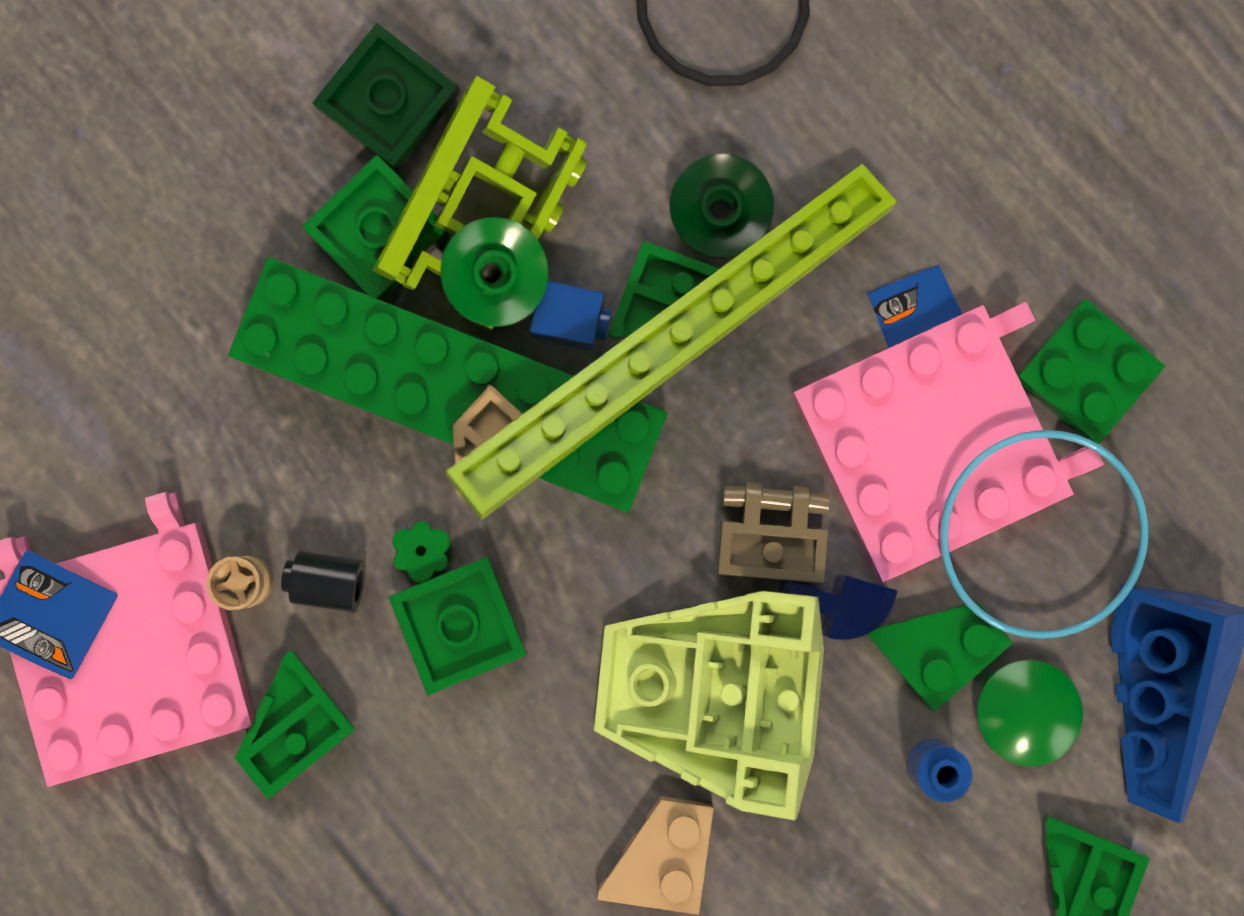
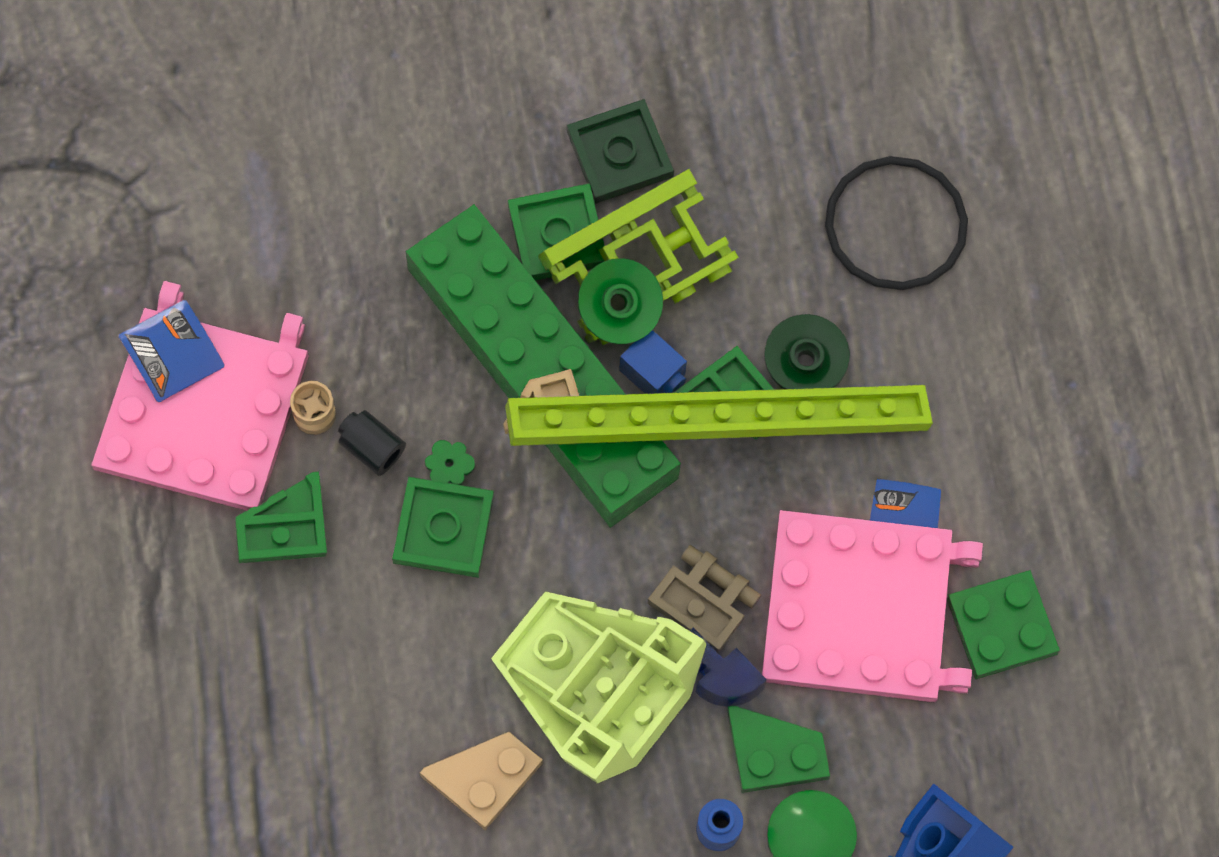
camera: 30 degrees right, 15 degrees down
(1143, 543) = (897, 626): medium azure piece -> none

